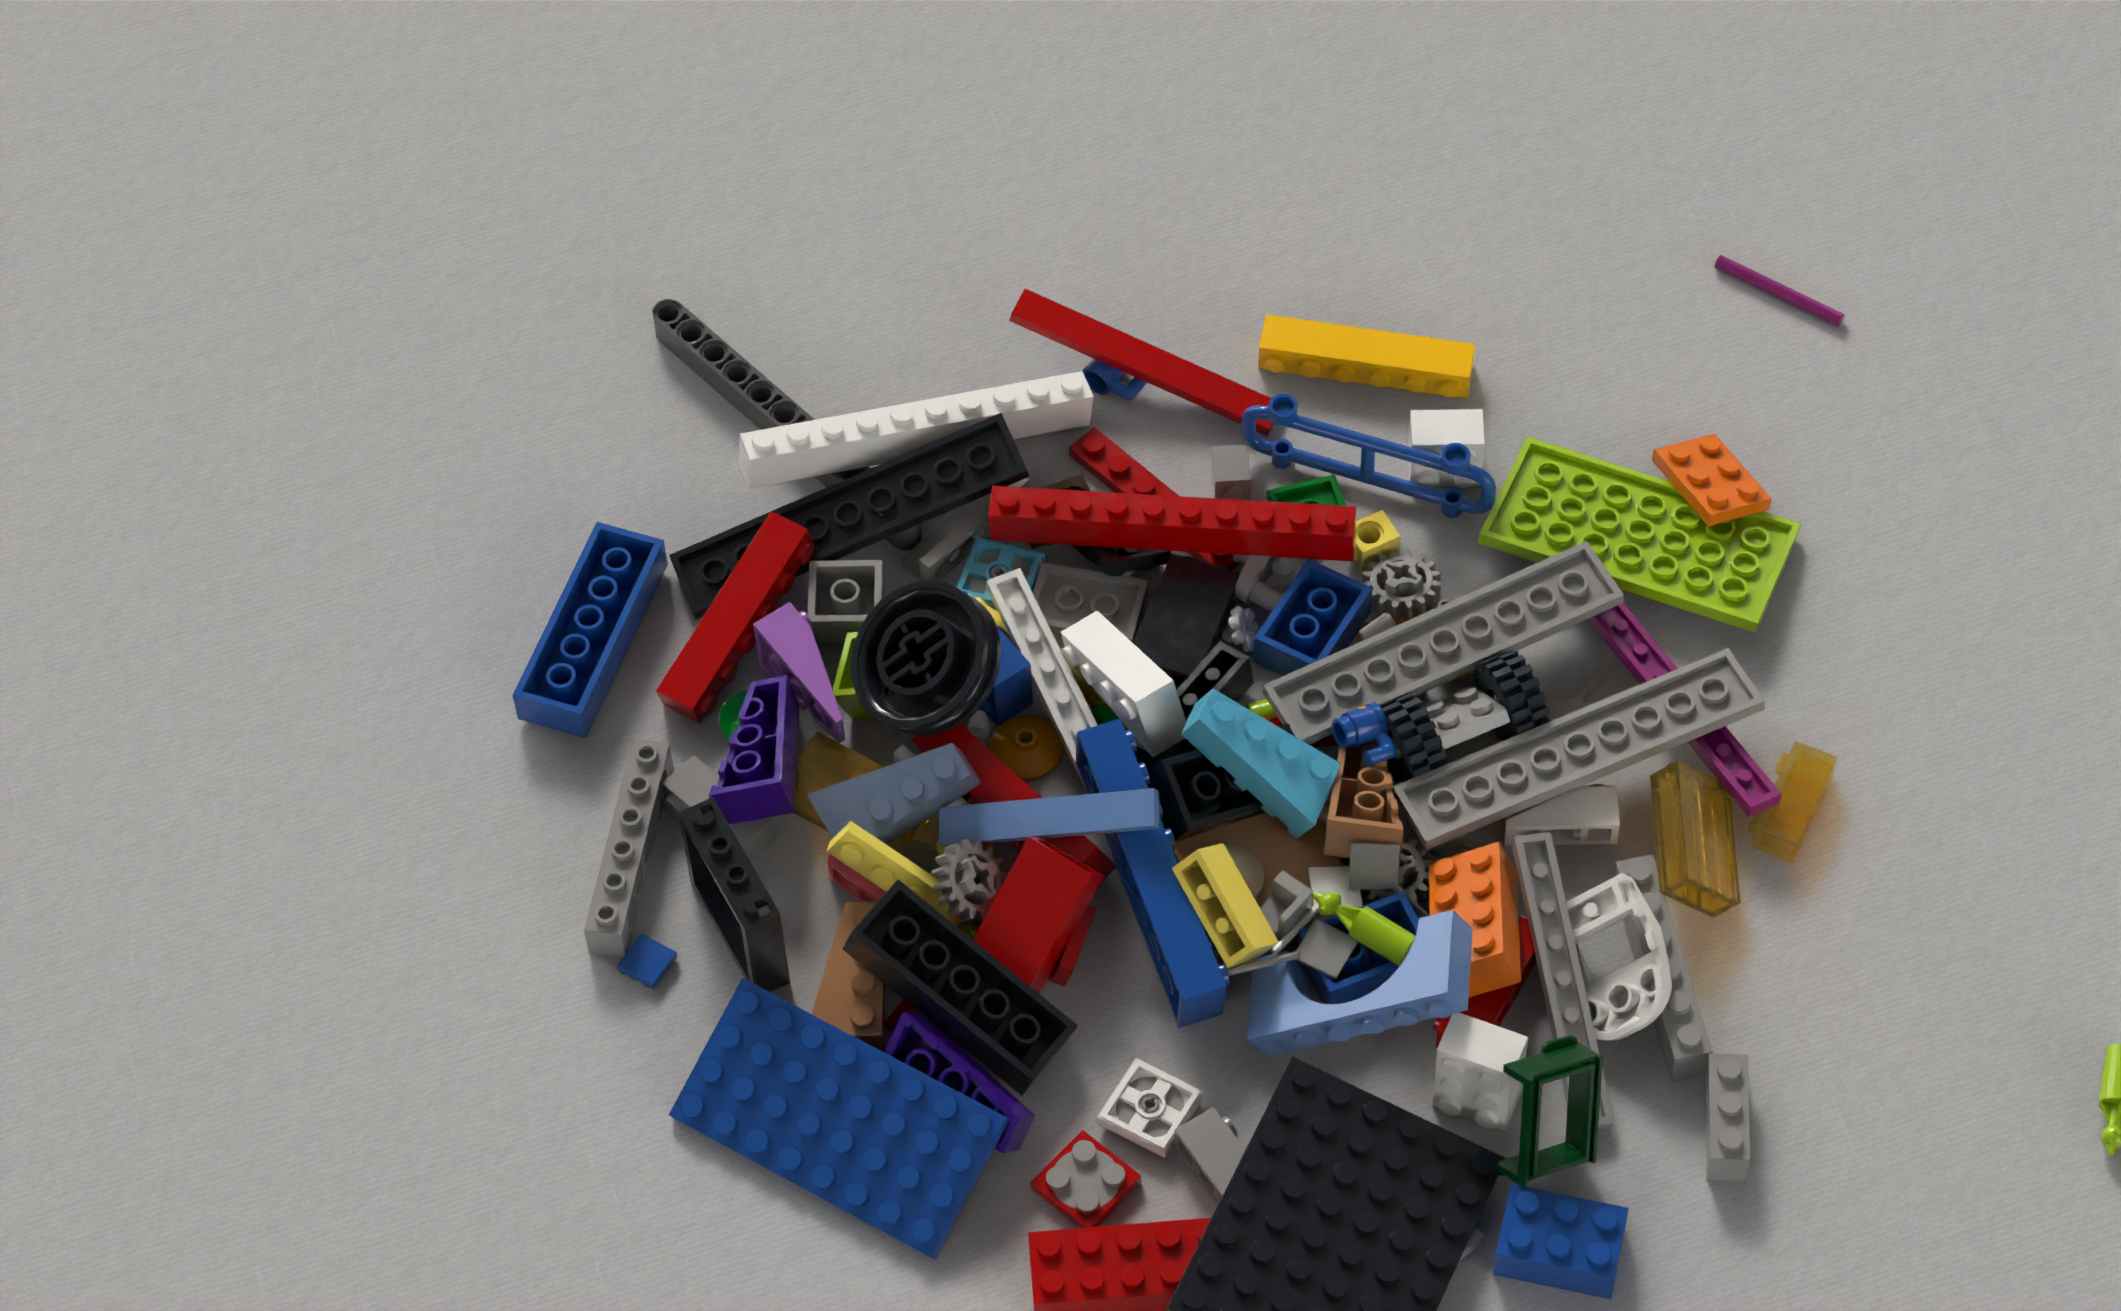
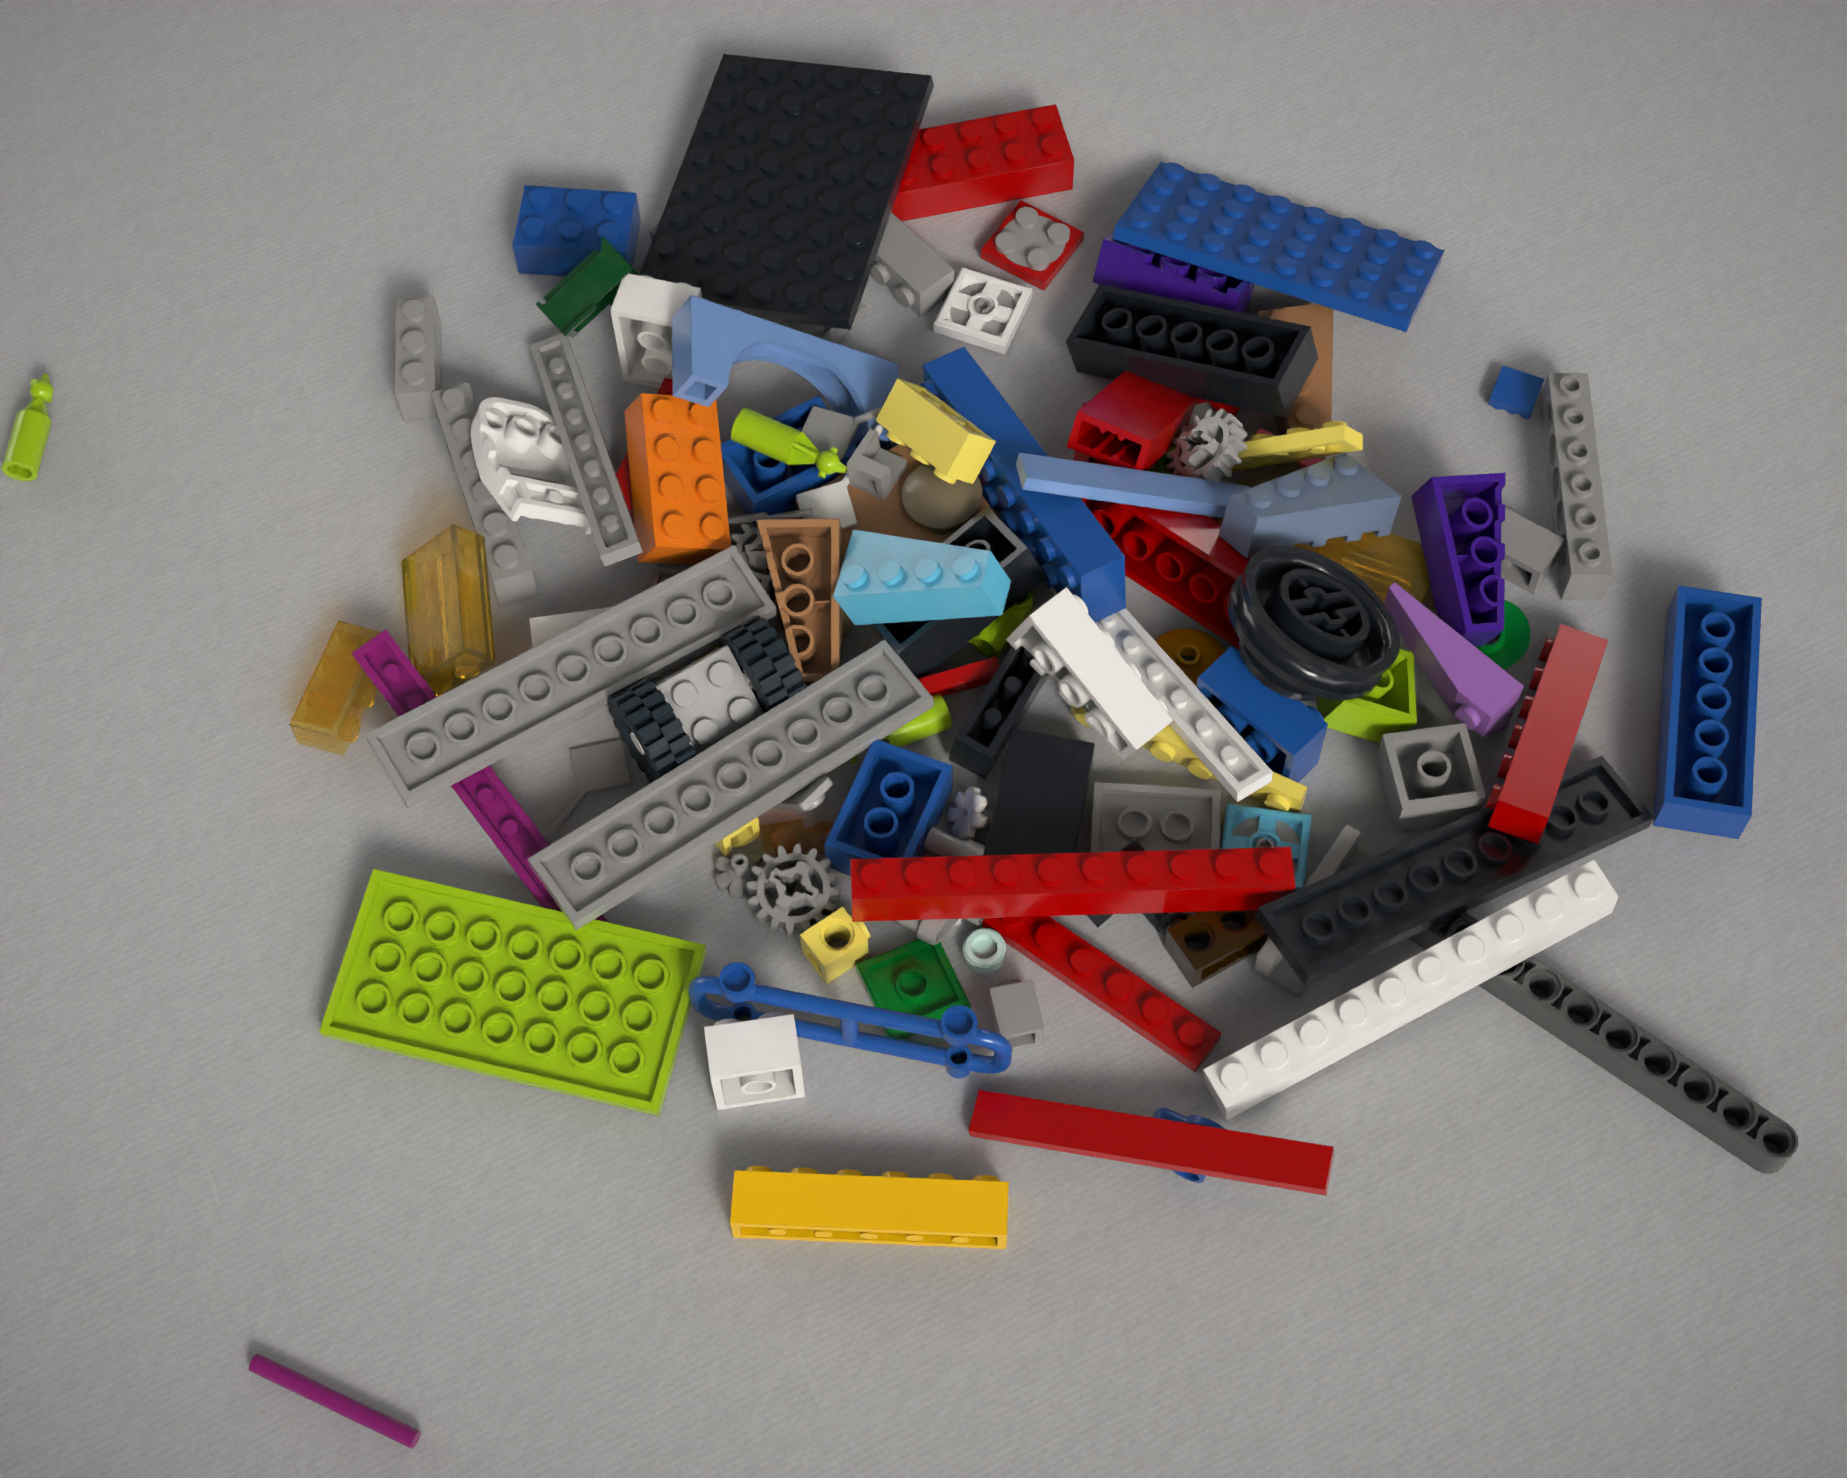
camera: 170 degrees right, 5 degrees up
(734, 896) = (1450, 450): black window -> none
(1364, 726) = (816, 652): blue piece -> none
(1711, 479) = (426, 1075): orange plate -> none

